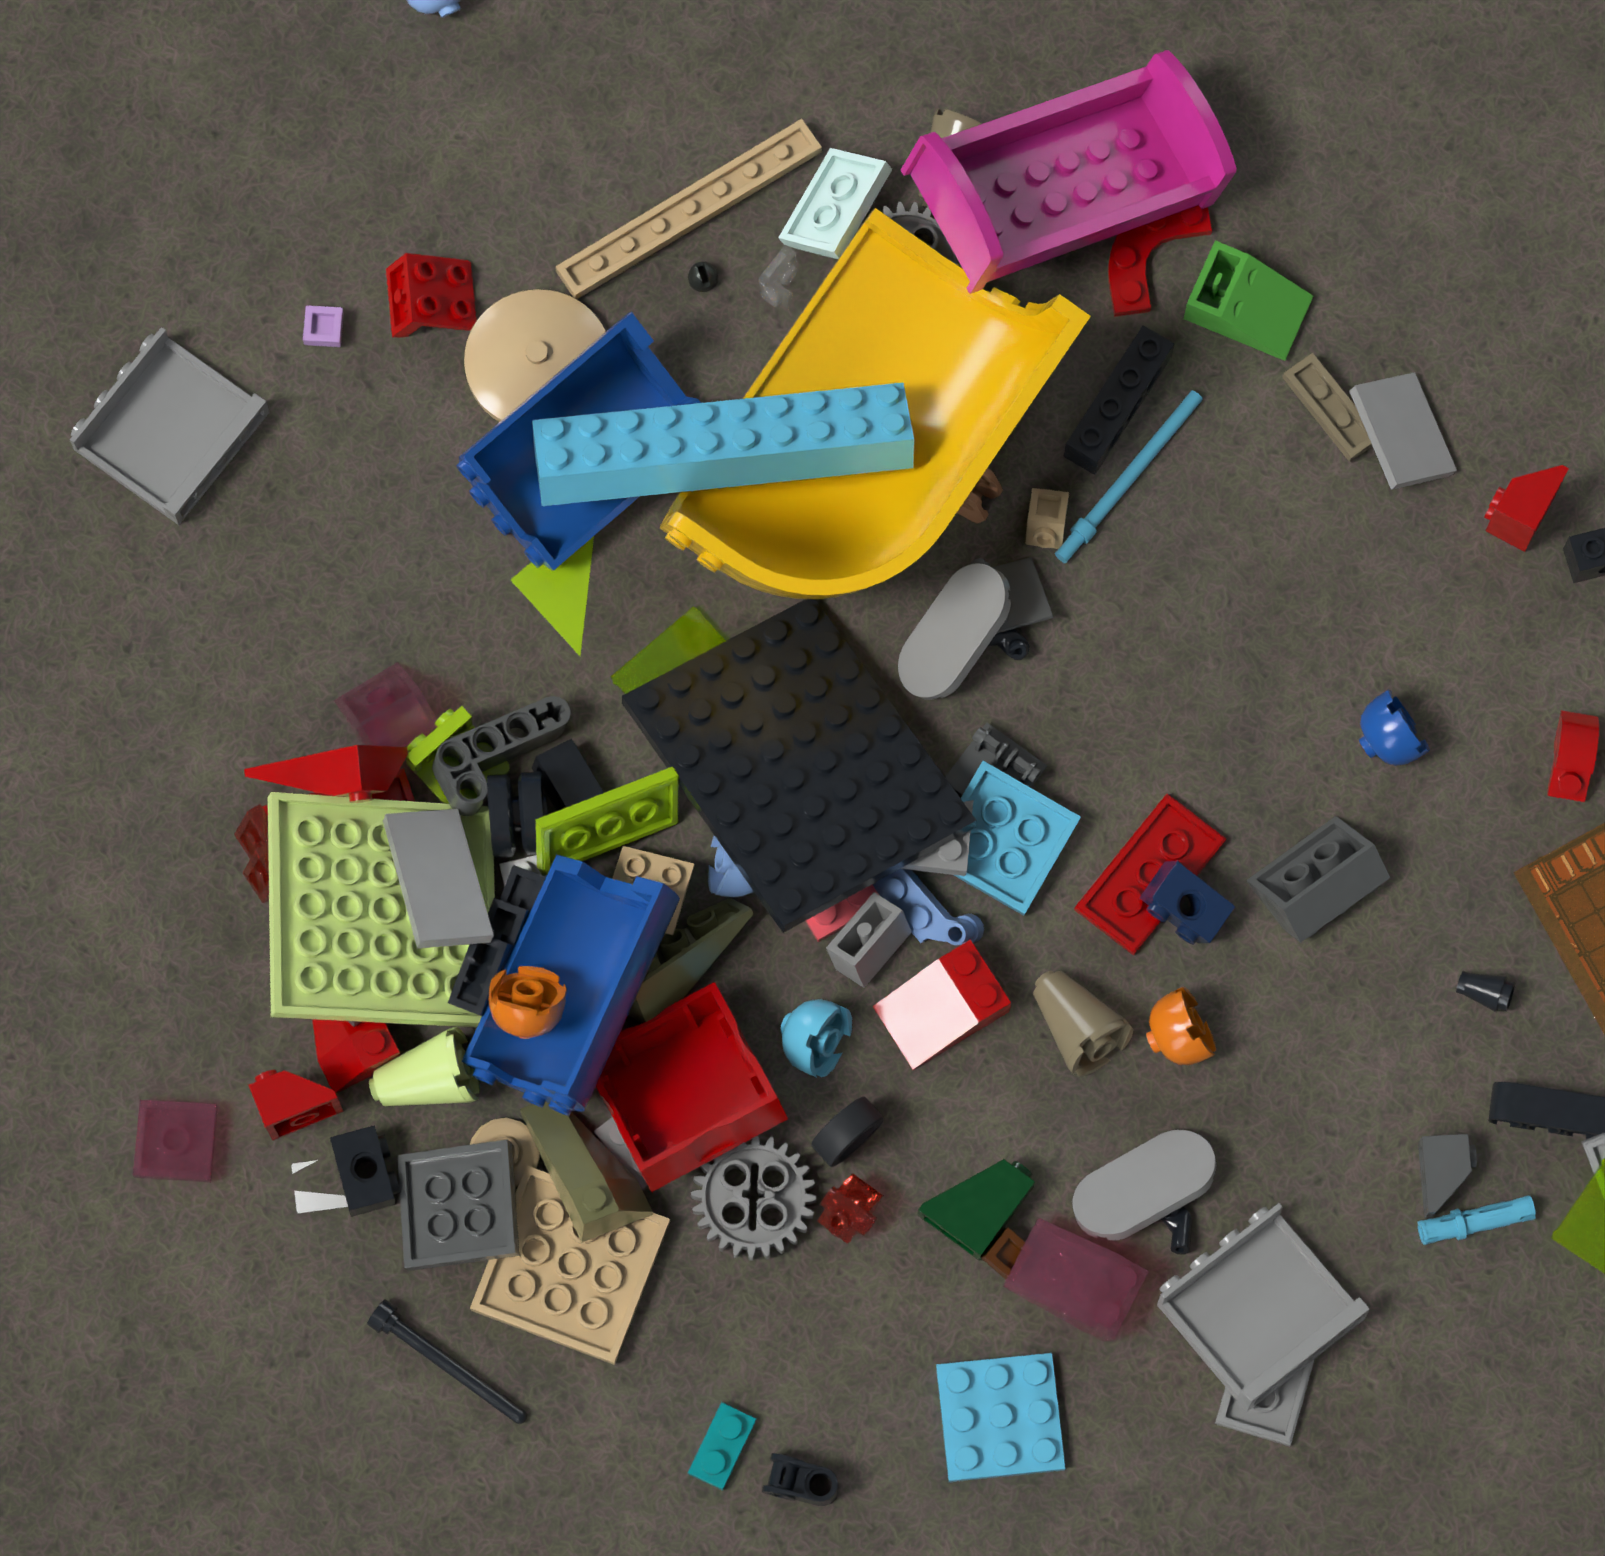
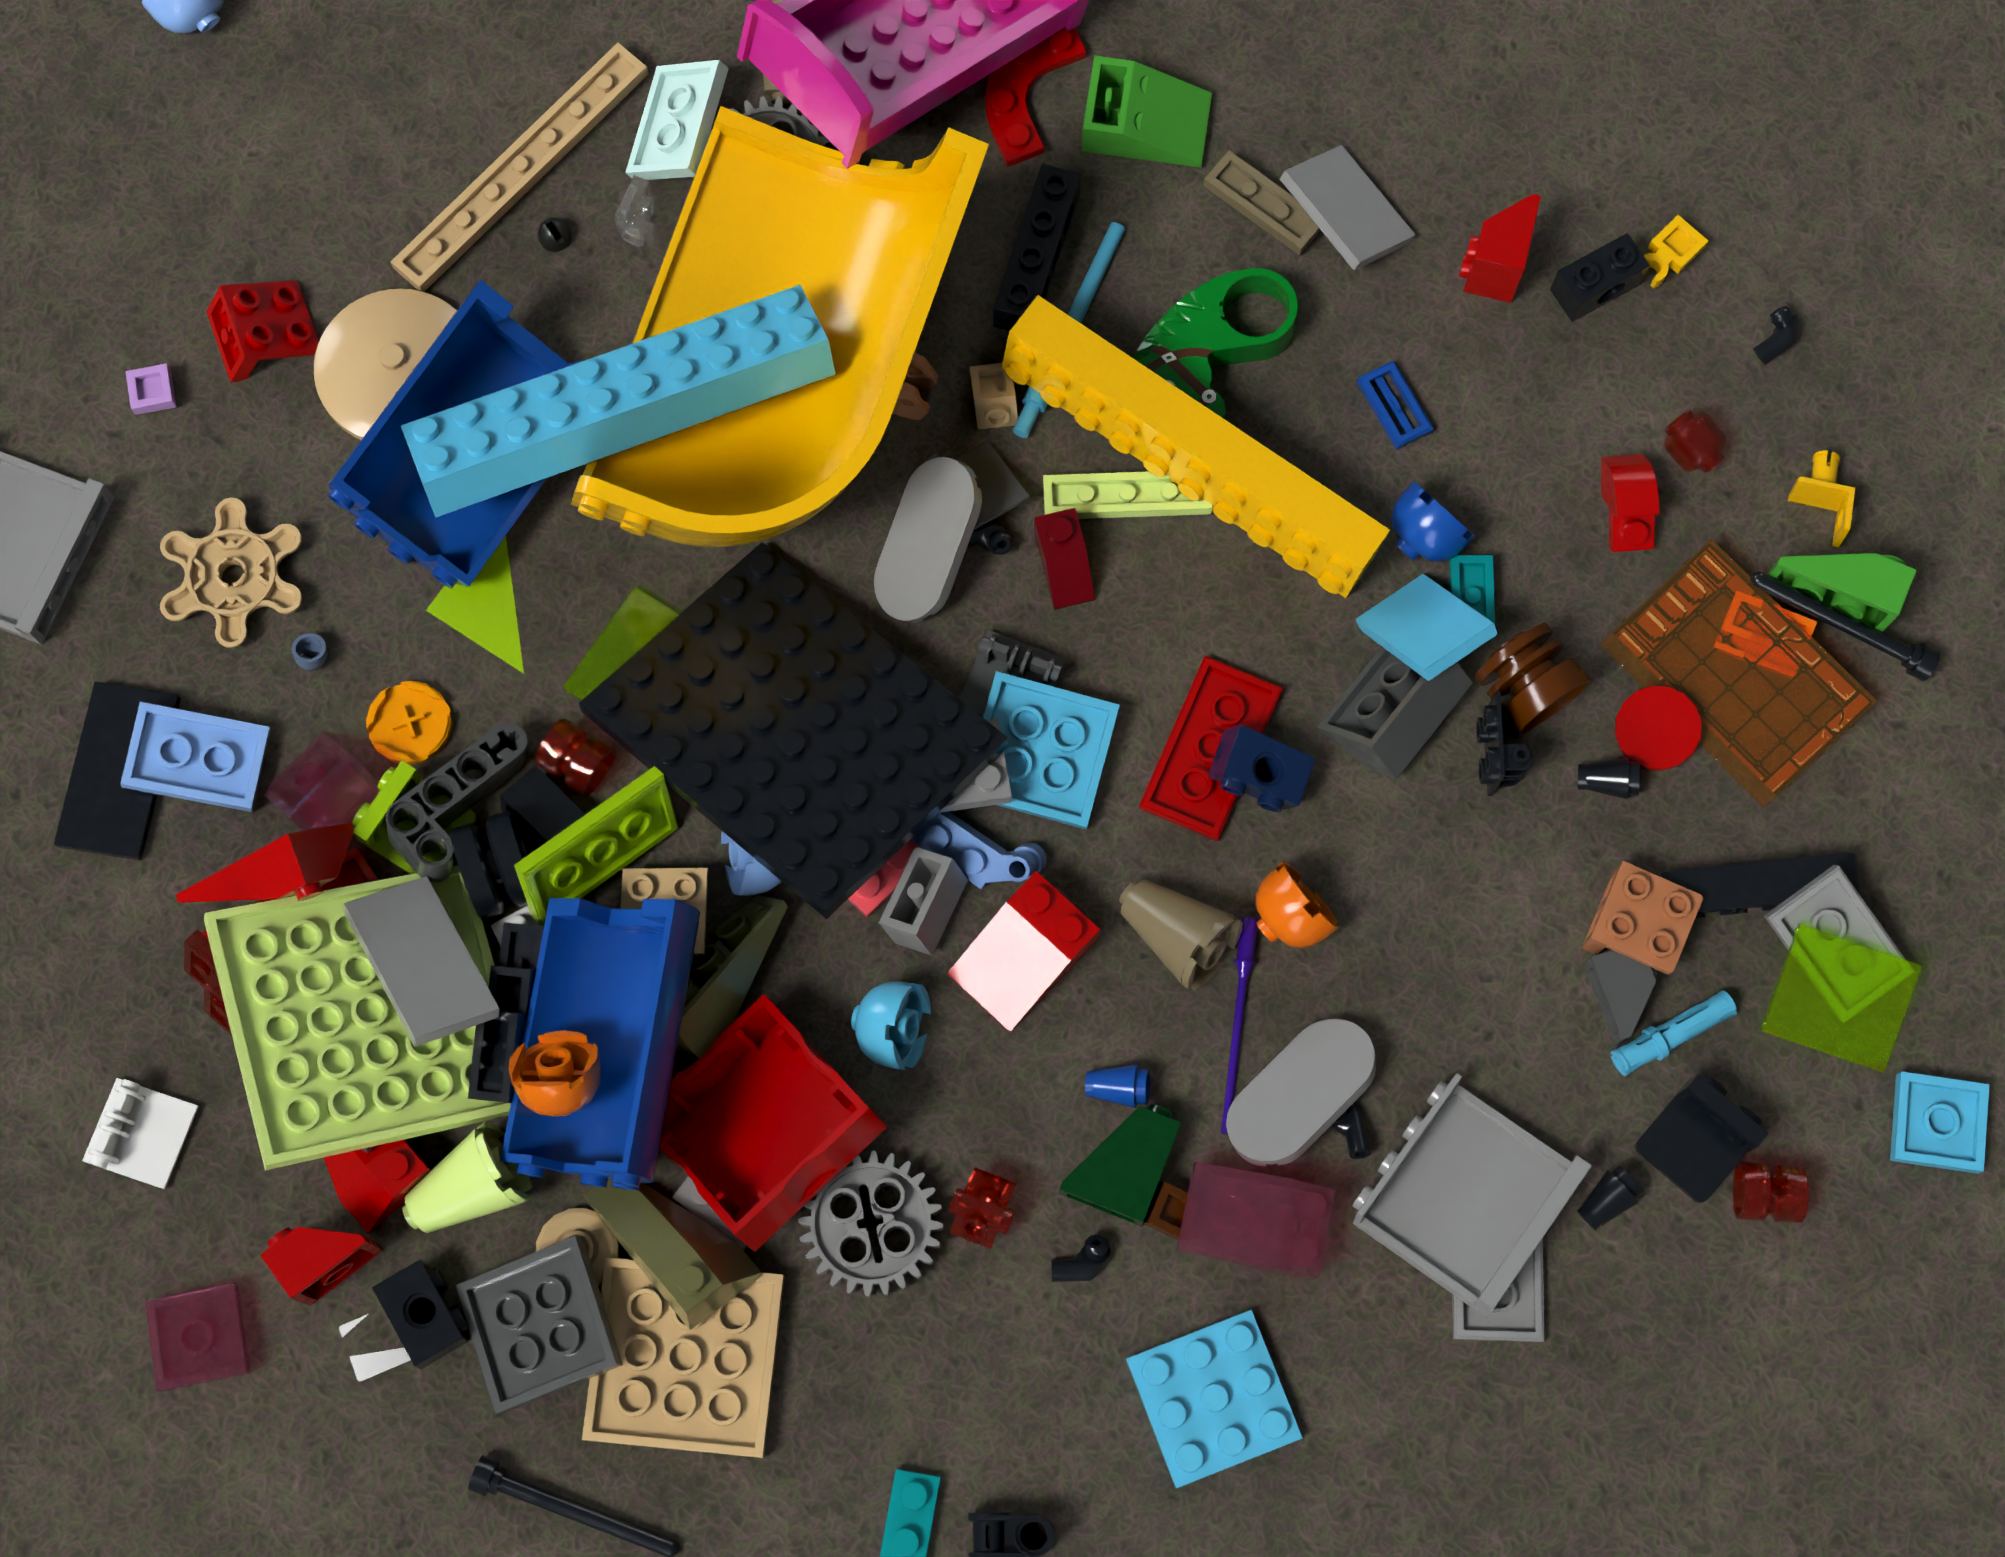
camera: 15 degrees left, 0 degrees up
(167, 960) = (140, 1133): none -> white hinge
(218, 650) = (96, 809): none -> black tile
(287, 656) = (195, 757): none -> light blue plate
(360, 481) = (226, 546): none -> tan plate
(408, 586) = (312, 645): none -> sand blue hinge
(472, 673) = (409, 722): none -> light orange tile
(610, 744) = (569, 753): none -> clear red wheel
(847, 1131) = (956, 1122): black tyre -> none
(924, 1279) = (1086, 1263): none -> black arm
(993, 1138) = (1119, 1085): none -> blue cone
(1068, 677) = (1064, 558): none -> dark red slope
(1127, 1065) = (1244, 963): none -> dark purple piece
(1139, 635) = (1118, 496): none -> yellowish green plate
(1203, 611) = (1192, 446): none -> yellow brick
(1233, 512) = (1196, 338): none -> green animal
(1362, 818) = (1426, 627): none -> medium azure tile
(1380, 1342) = (1610, 1198): none -> black cone
(1394, 953) = (1502, 762): none -> black hinge
(1401, 646) = (1411, 435): none -> blue tile
(1412, 803) = (1473, 582): none -> teal plate
(1438, 879) = (1532, 678): none -> reddish brown wheel
(1471, 1313) = (1700, 1138): none -> black bracket
(1477, 1116) = (1643, 918): none -> nougat bracket
(1503, 1370) = (1754, 1192): none -> clear red wheel
(1540, 958) = (1658, 728): none -> red tile

